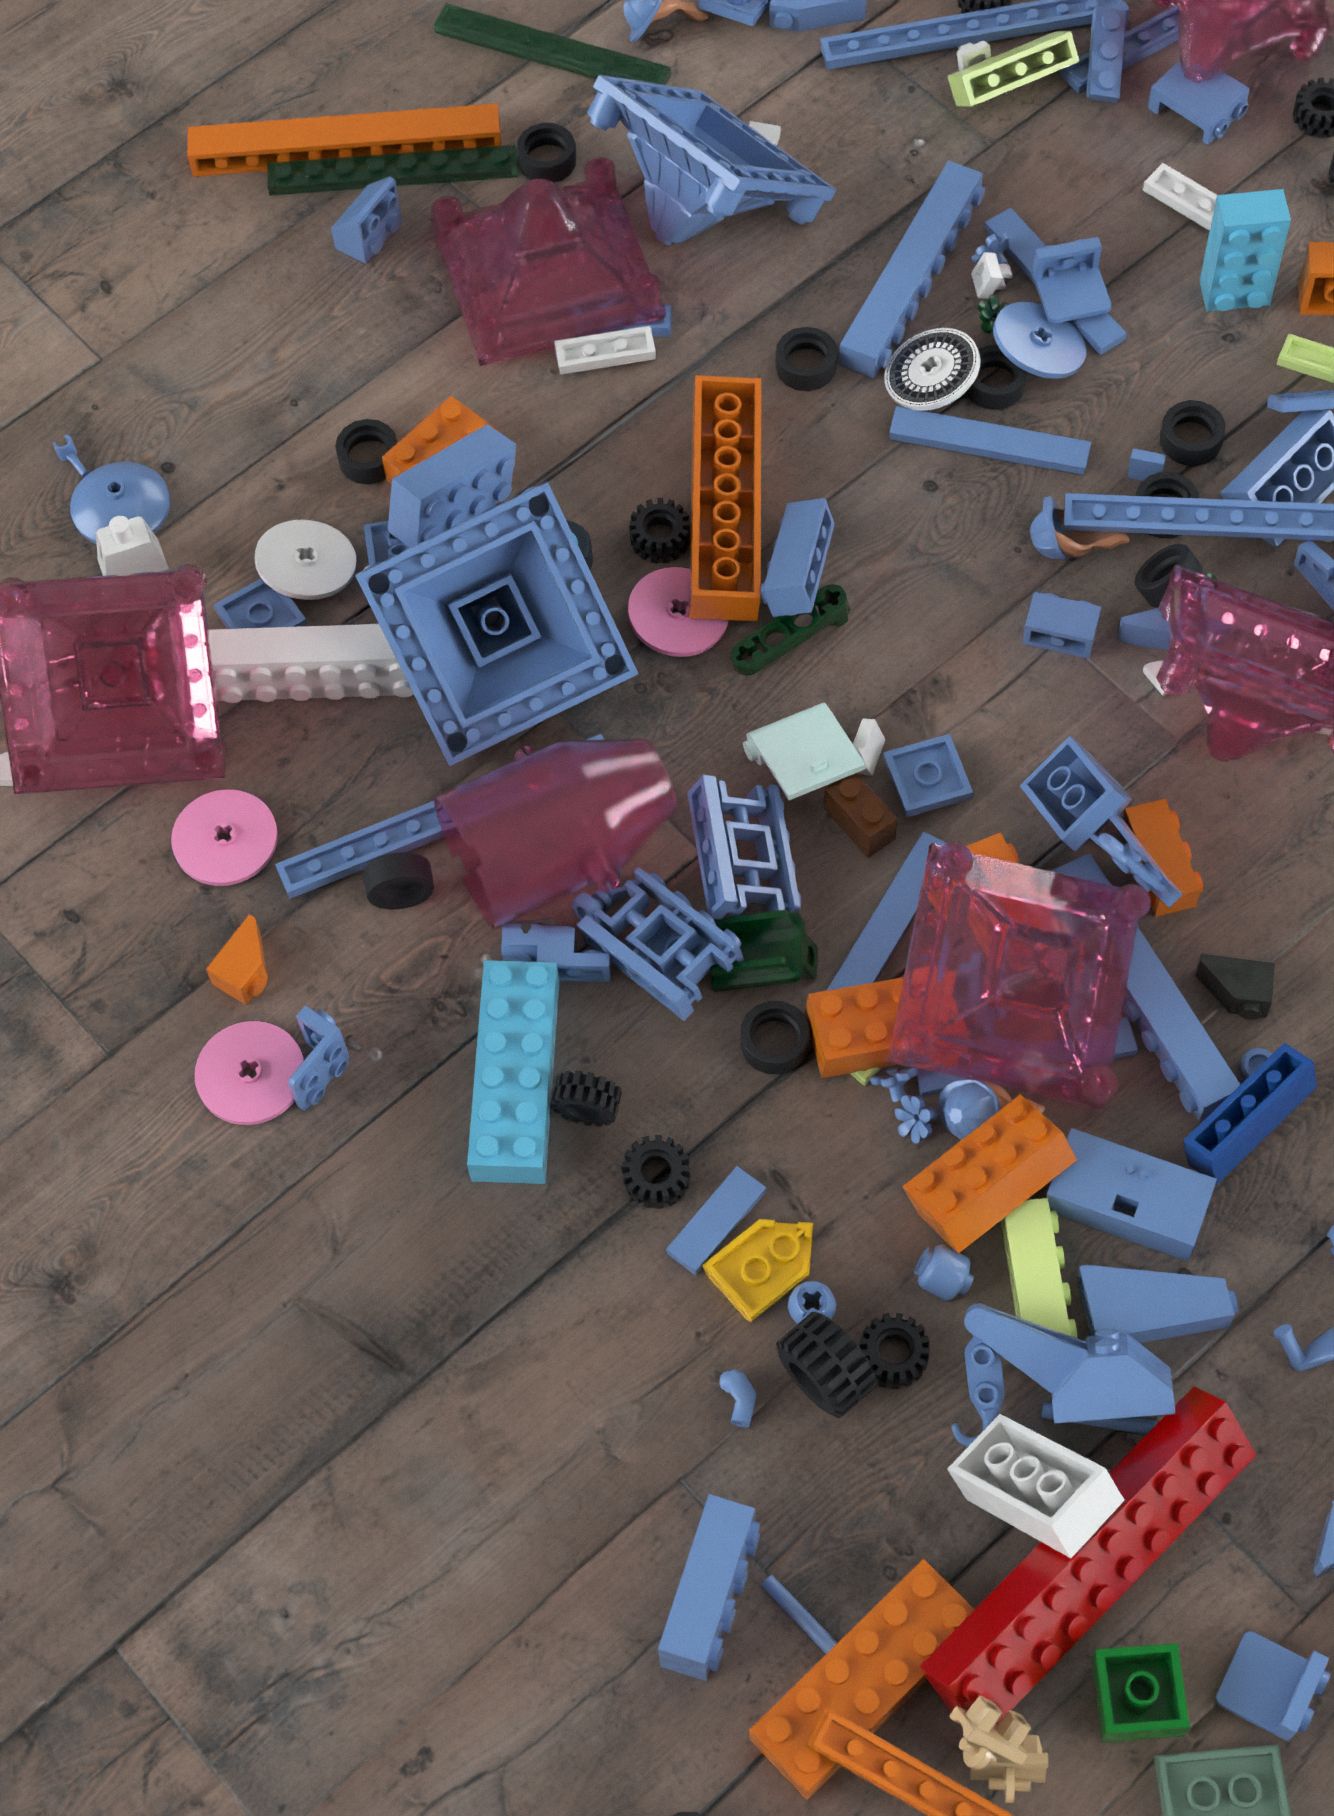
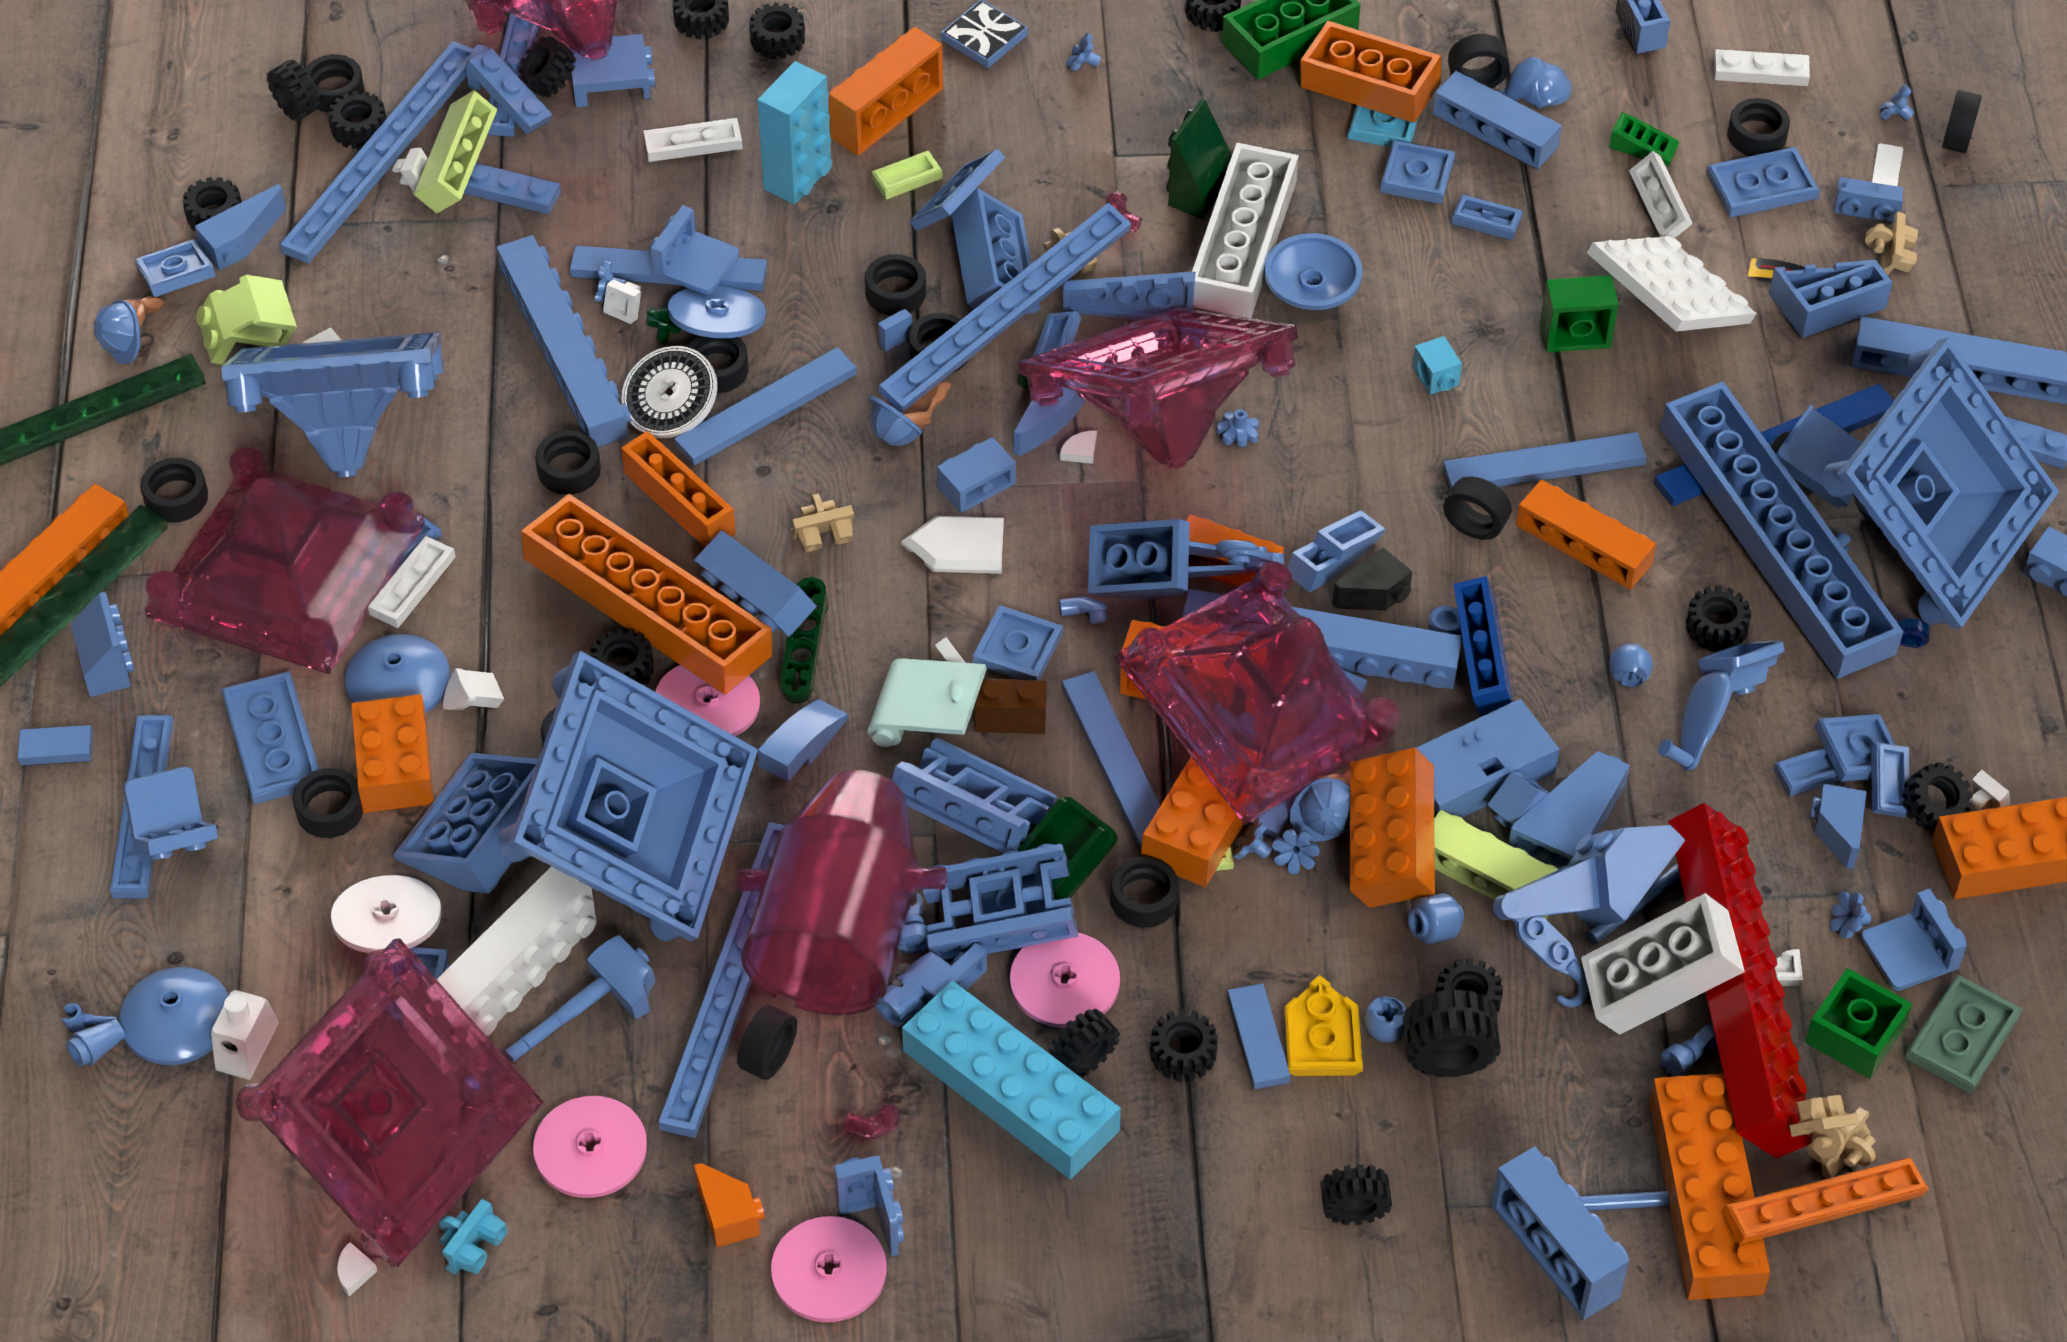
camera: 55 degrees left, 10 degrees down
(52, 475) = (93, 1043): none -> medium blue cone
(80, 817) = (464, 1235): none -> medium azure hips
(260, 365) = (166, 813): none -> medium blue bracket
(270, 349) = (148, 756): none -> medium blue tile
(274, 260) = (55, 745): none -> medium blue tile
(381, 743) = (617, 971): none -> medium blue piece
(397, 373) = (270, 735): none -> medium blue tile
(400, 1011) = (876, 1126): none -> clear pink arm
(451, 486) = (450, 757): medium blue brick -> none
(527, 418) = (419, 670): none -> medium blue dish
(545, 460) = (472, 689): none -> white tile
(615, 1401) = (1356, 1194): none -> black tyre
(640, 1068) = (1038, 976): none -> bright pink piece
(700, 697) = (800, 739): none -> medium blue slope
(734, 71) = (245, 314): none -> yellowish green piece
(743, 1393) = (1418, 1114): medium blue arm -> none
(843, 443) = (677, 489): none -> orange brick
(922, 567) = (822, 518): none -> tan hips
(977, 1565) = (1680, 1057): none -> medium blue piece
(990, 665) = (959, 544): none -> white tile
(1013, 795) = (1082, 605): none -> medium blue arm
(1025, 129) = (513, 188): none -> medium blue plate
(1120, 1248) = (1516, 798): none -> medium blue brick
(1152, 58) = (547, 66): none -> black tyre
(1154, 1592) = (1789, 968): none -> white tile
(1155, 572) = (990, 381): black tyre -> none
(1246, 930) = (1334, 550): none -> medium blue slope
(1256, 1608) = (1850, 914): none -> medium blue plant
(1260, 575) = (1058, 331): none -> medium blue tile
(1302, 771) = (1238, 427): none -> medium blue plant

